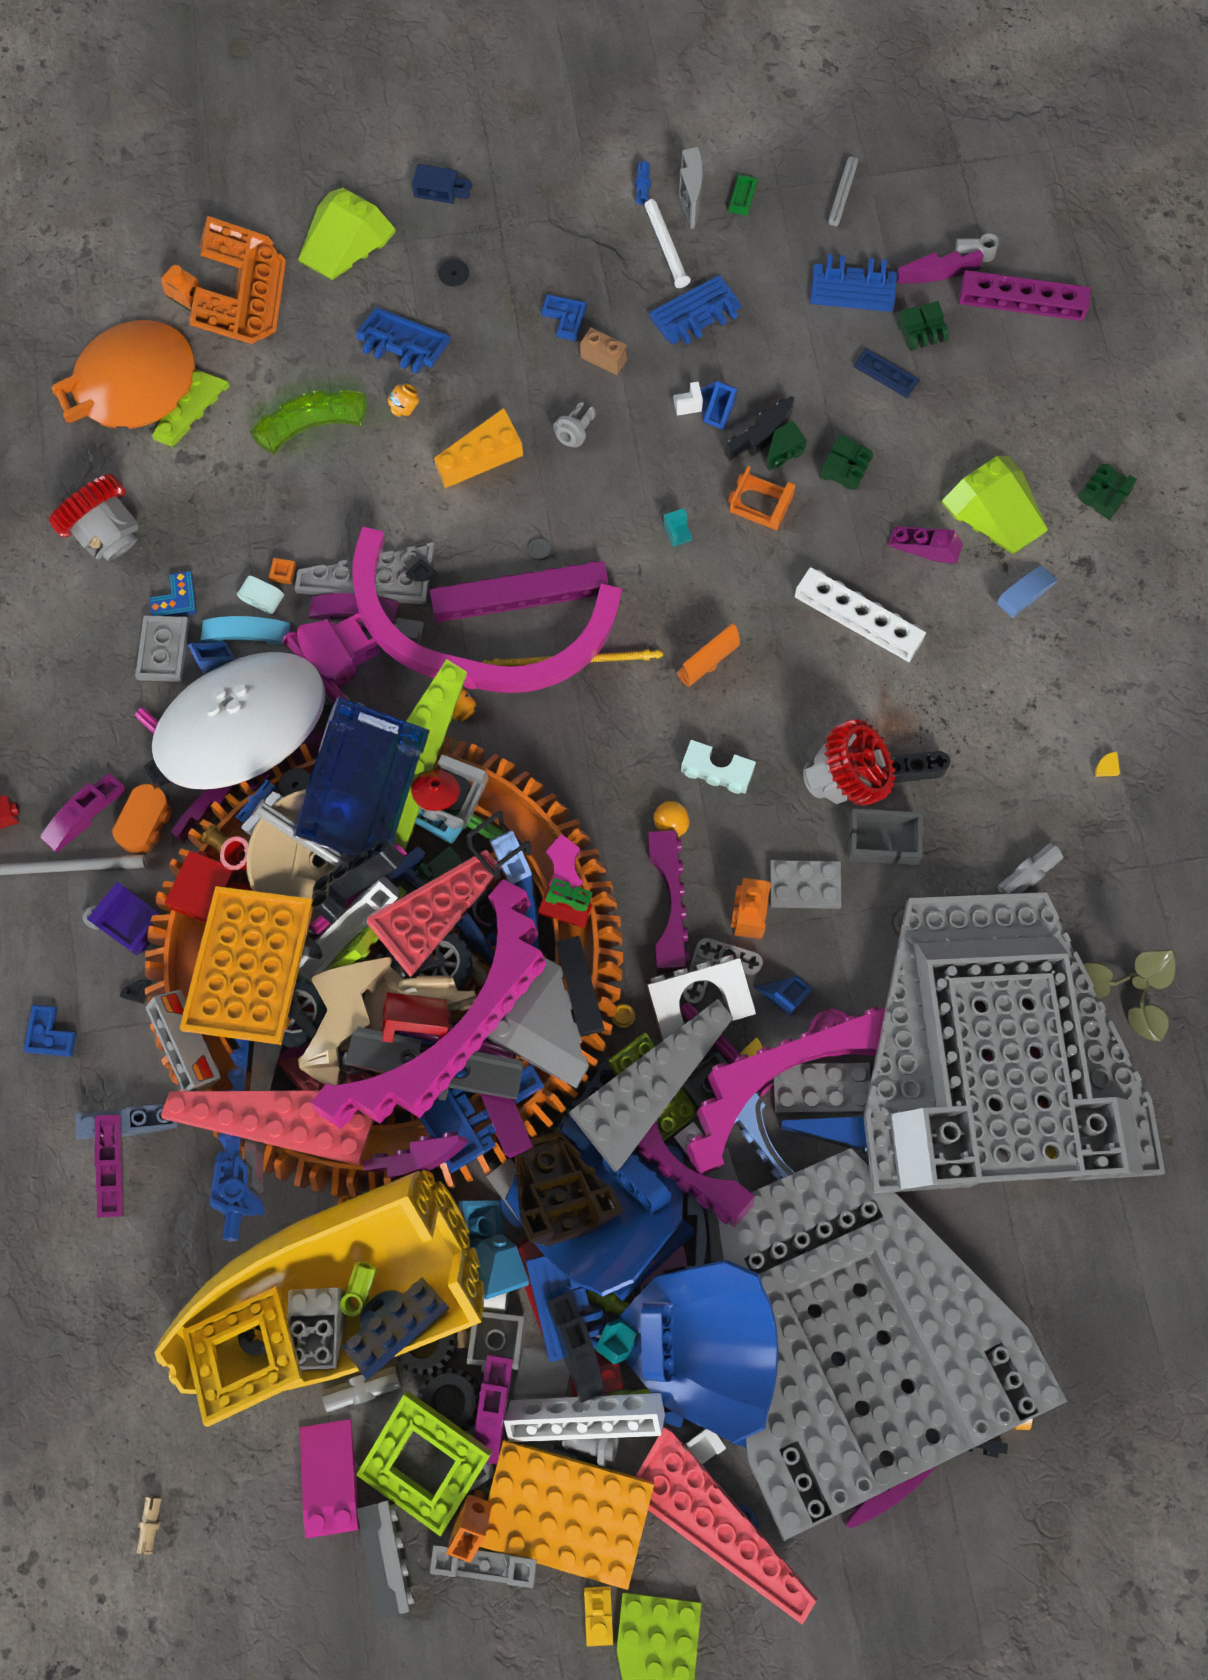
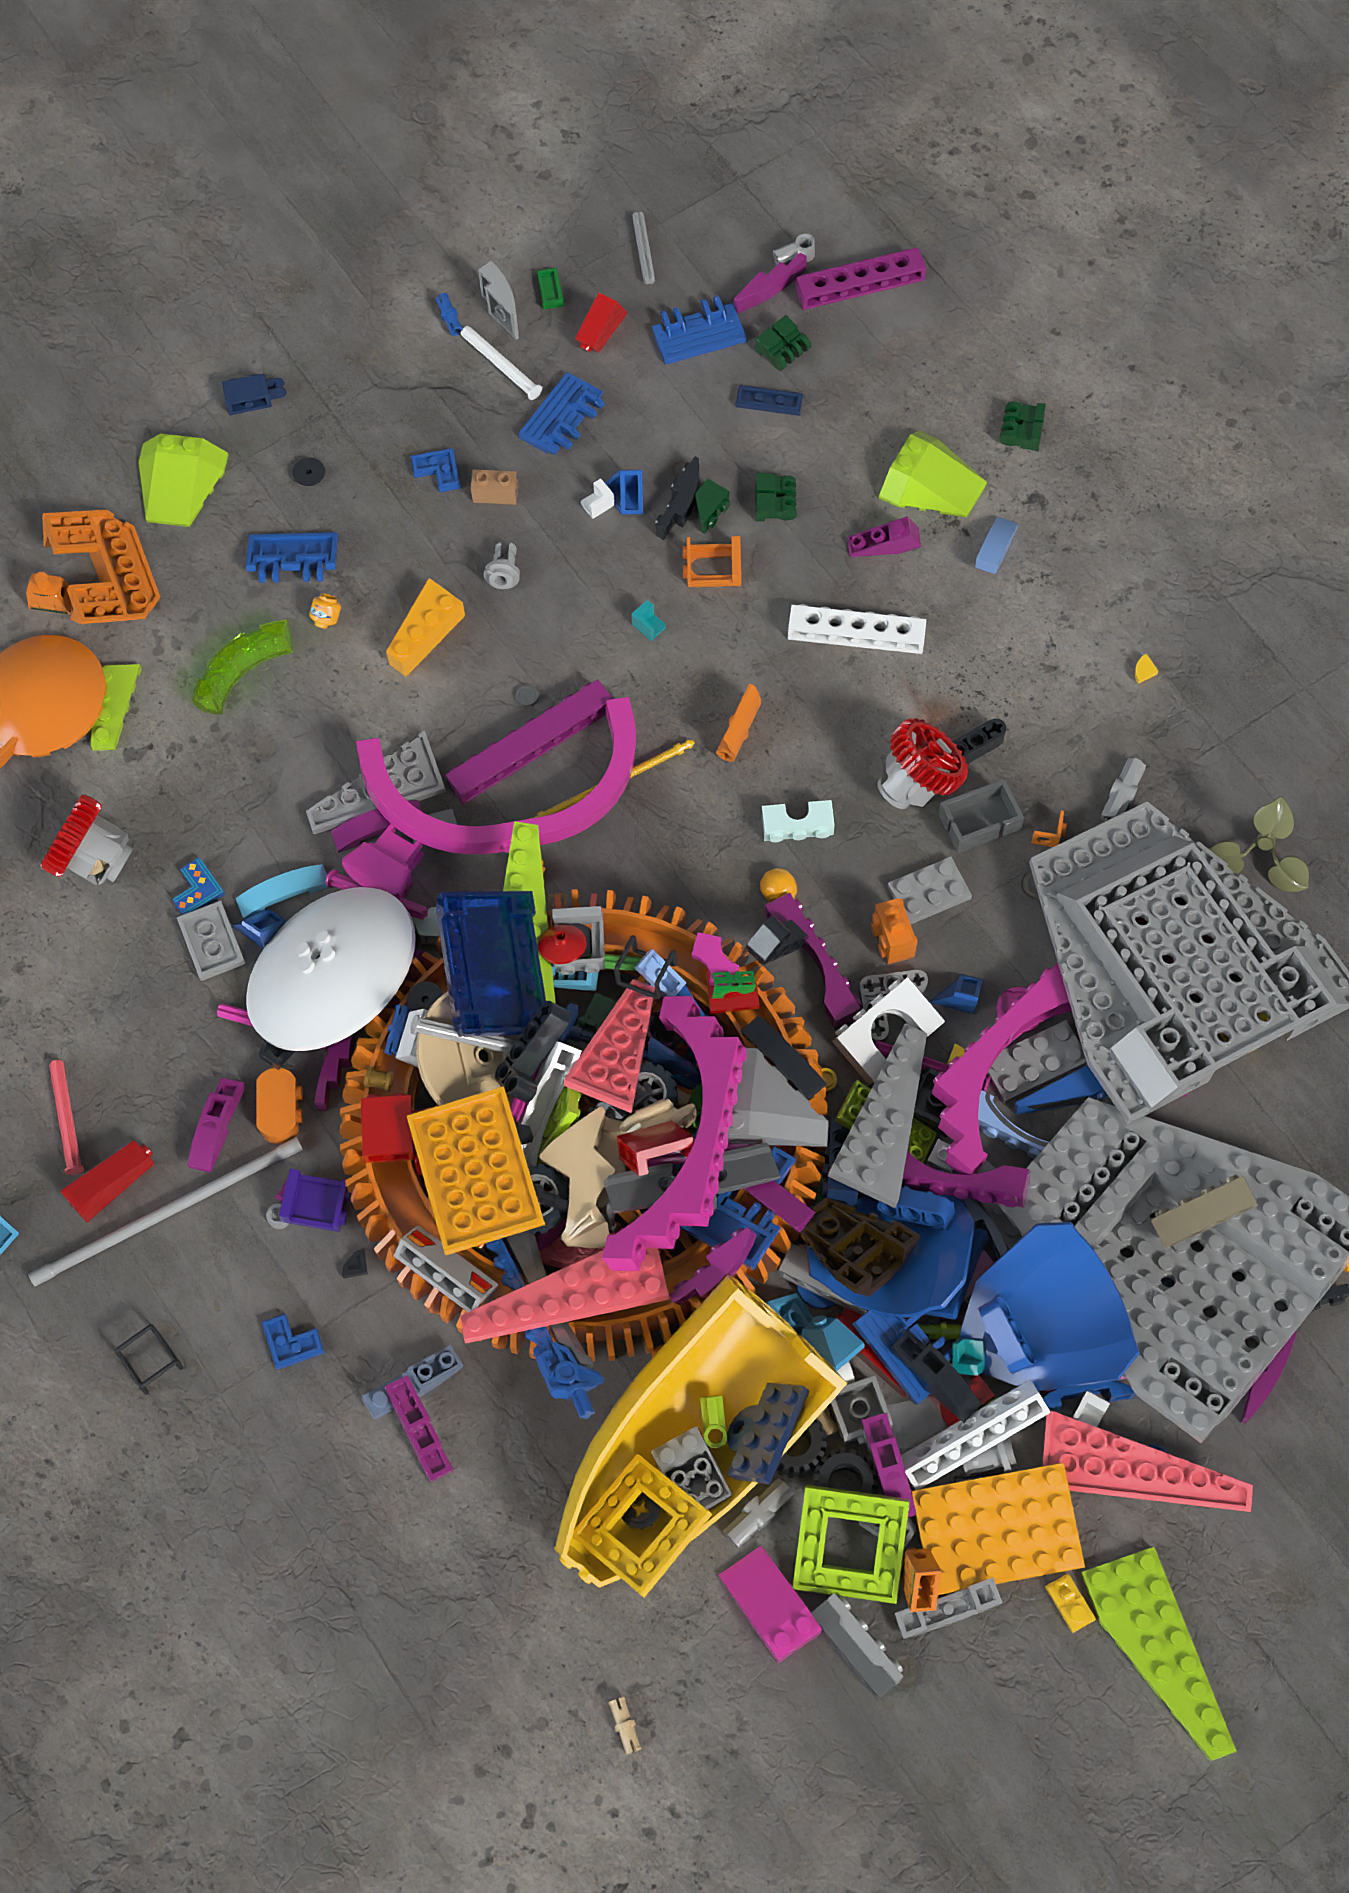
camera: 25 degrees left, 5 degrees down
(234, 853) = (408, 1080): red plant -> none
(260, 594) = (280, 850): light aqua beam -> none
(282, 571) = (290, 819): orange plate -> none
(421, 572) = (428, 762): black tile -> none
(629, 871) = (775, 940): none -> black beam
(769, 242) = (600, 323): none -> red slope
(900, 1316) = (1204, 1212): none -> dark tan brick
(941, 888) = (1054, 838): none -> orange bracket

